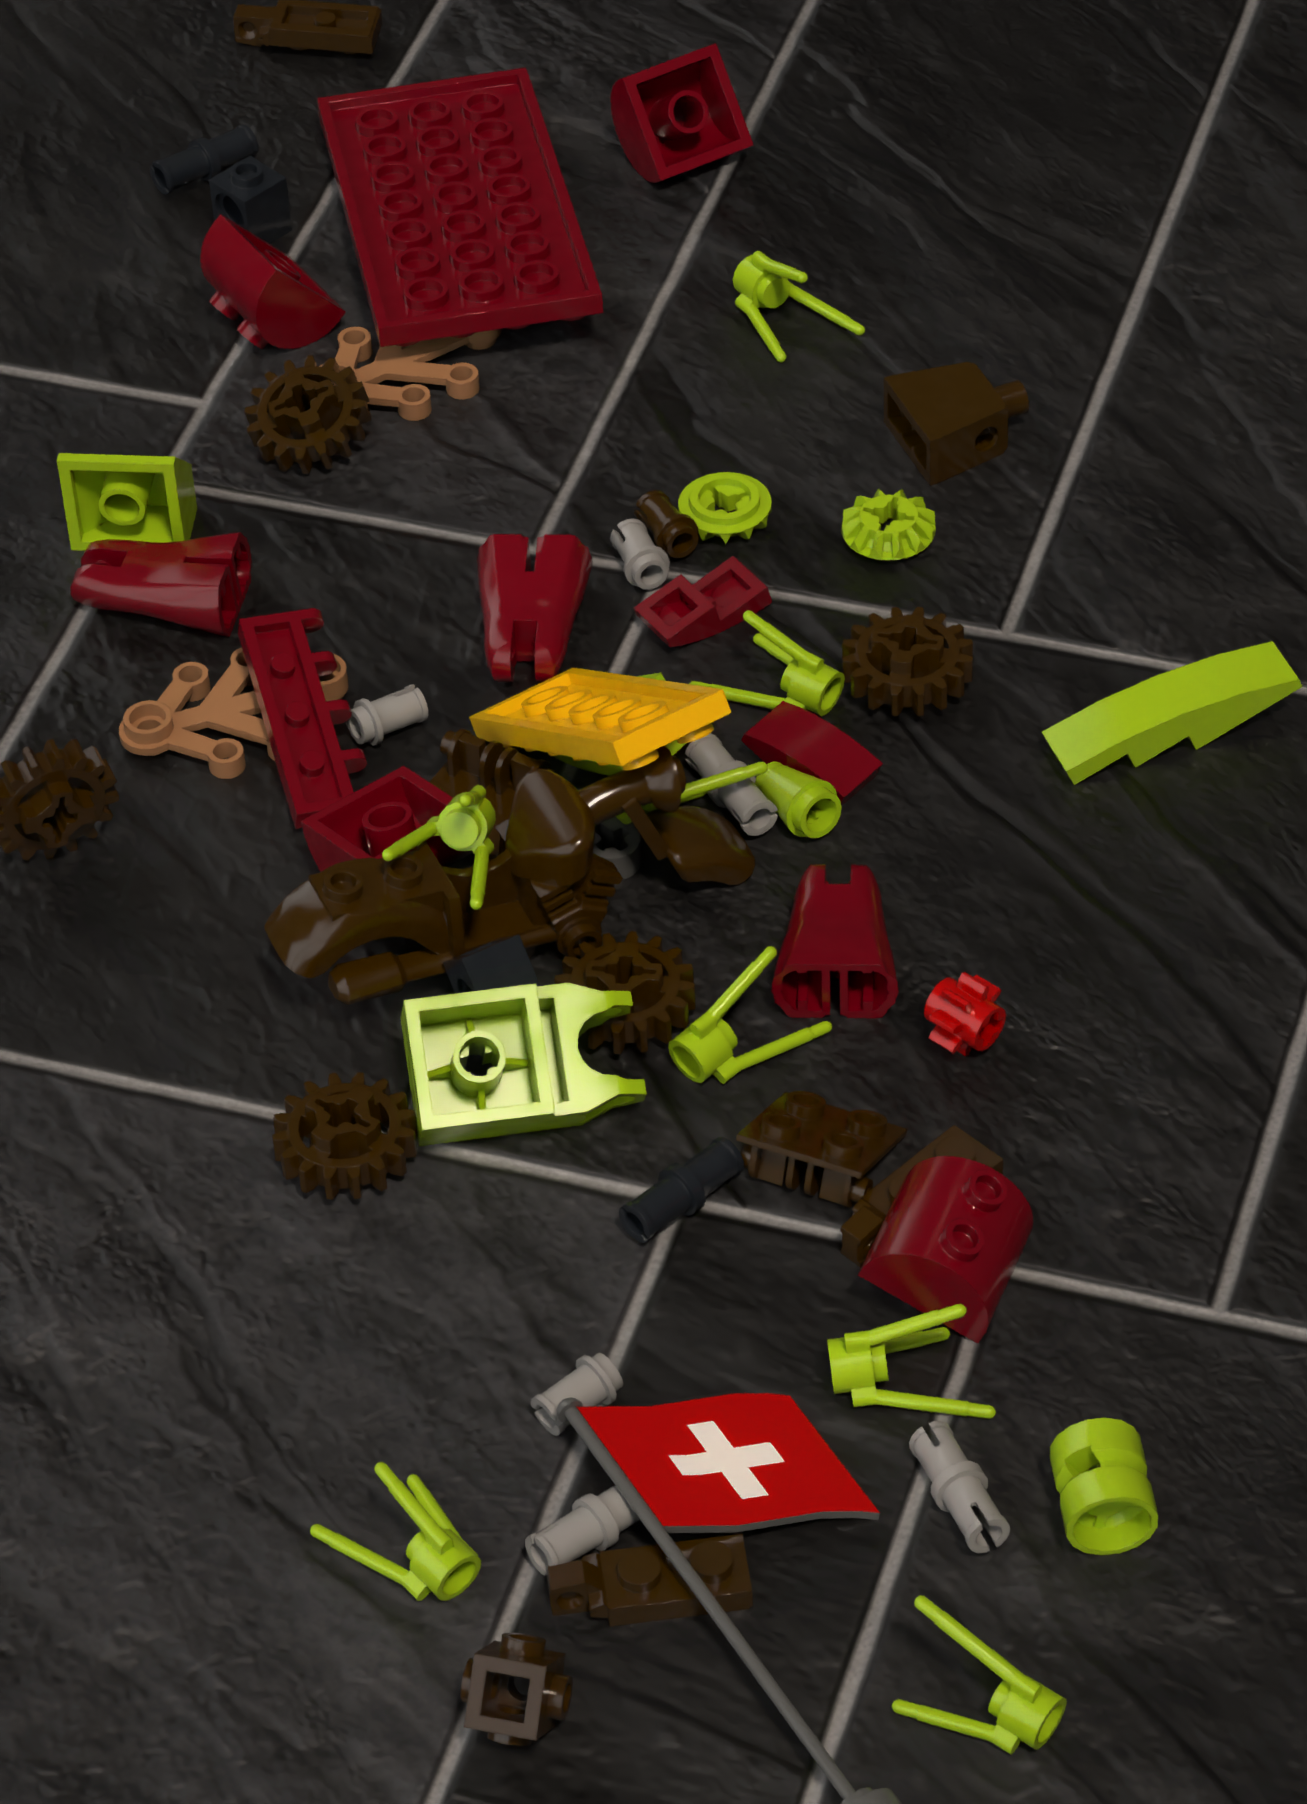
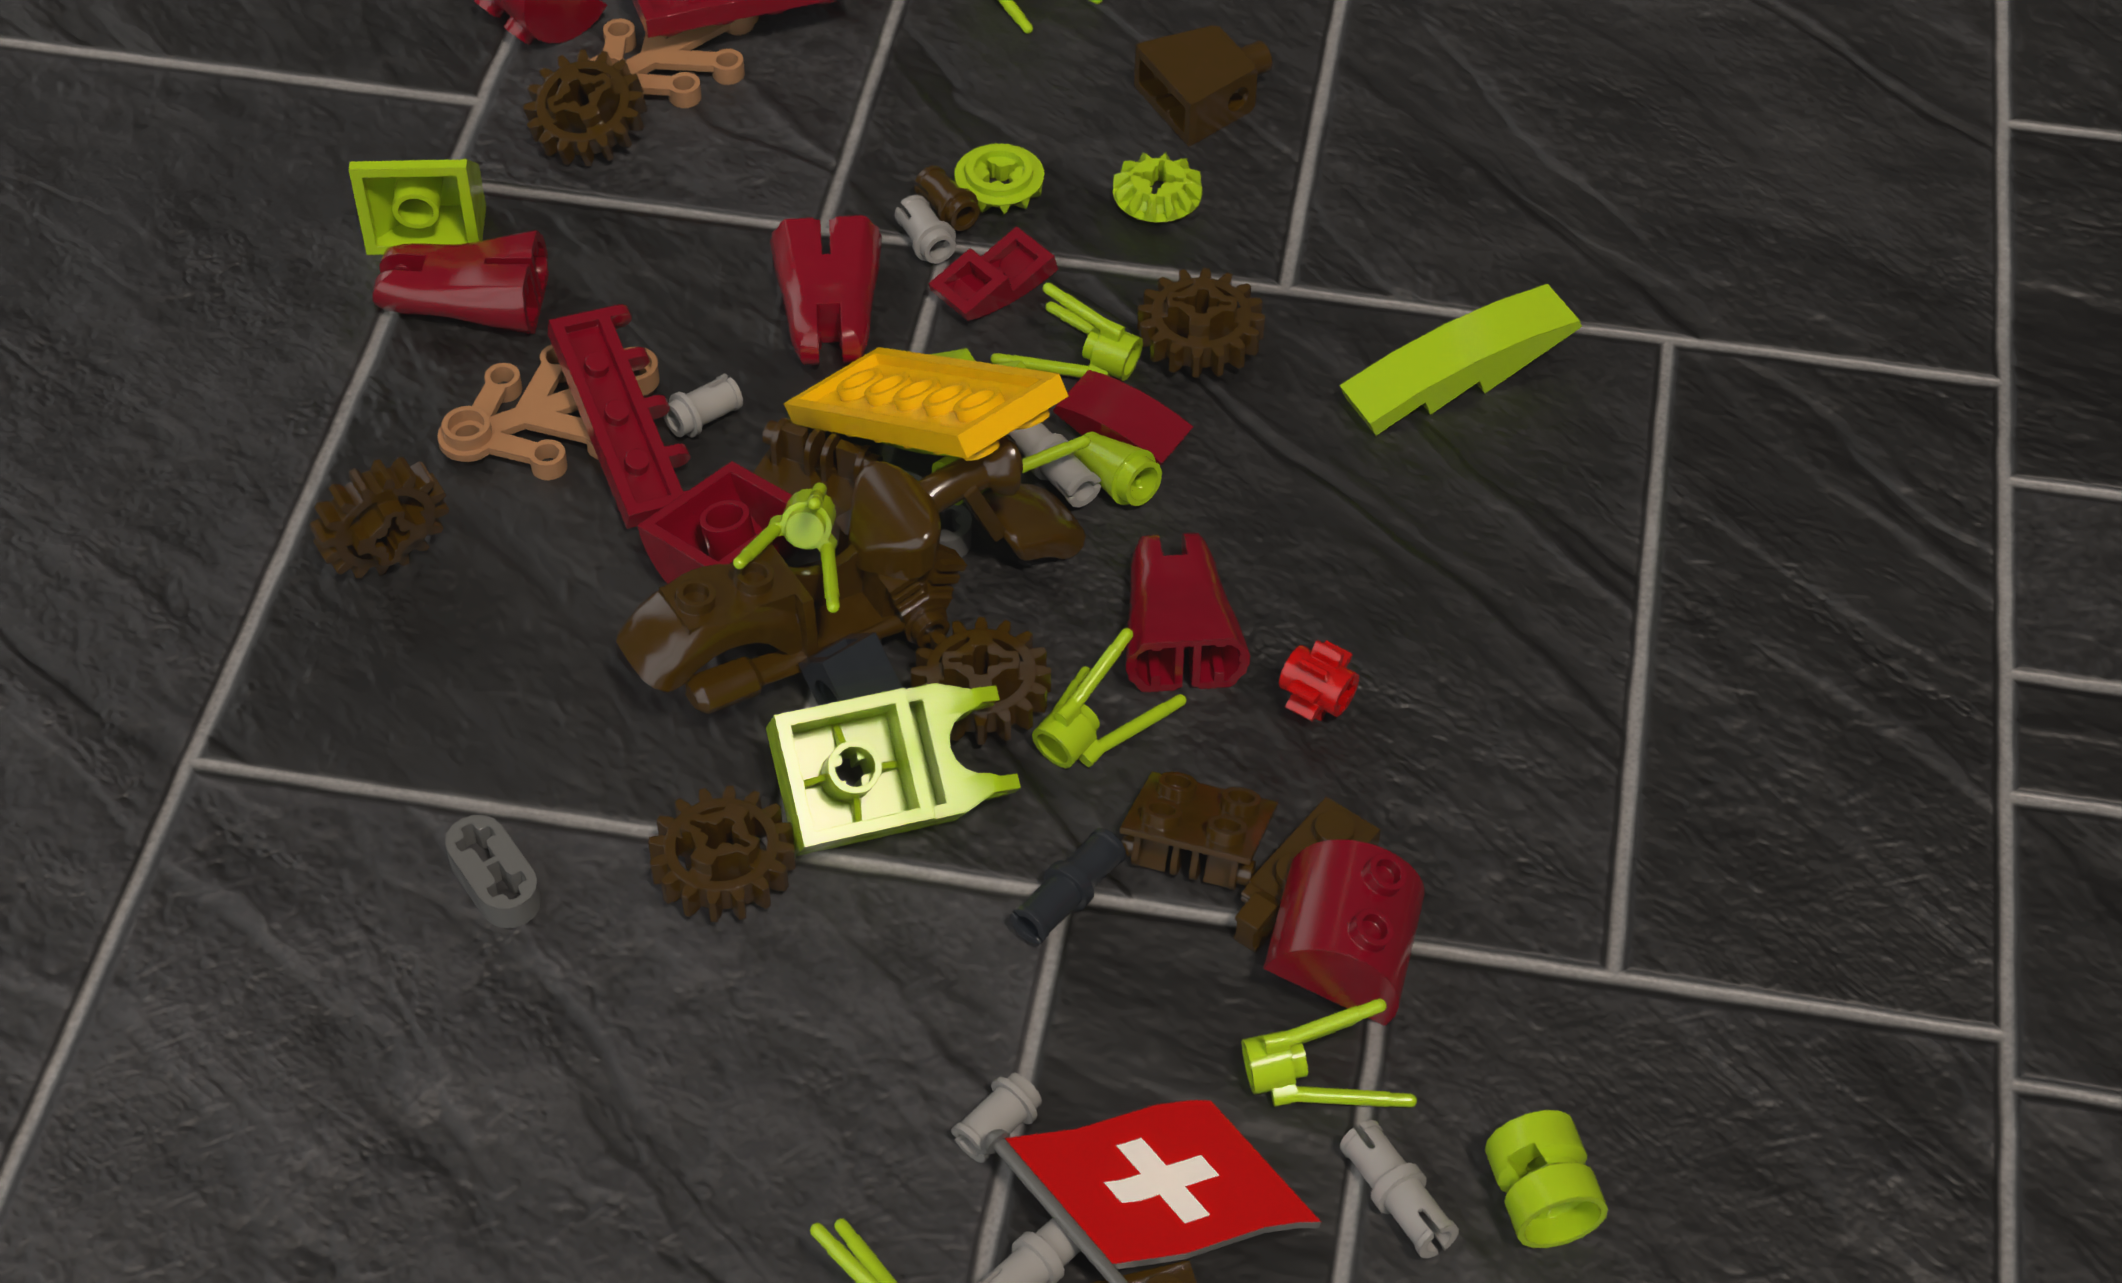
camera: 10 degrees left, 5 degrees up
(132, 1134) = (481, 877): none -> dark grey beam

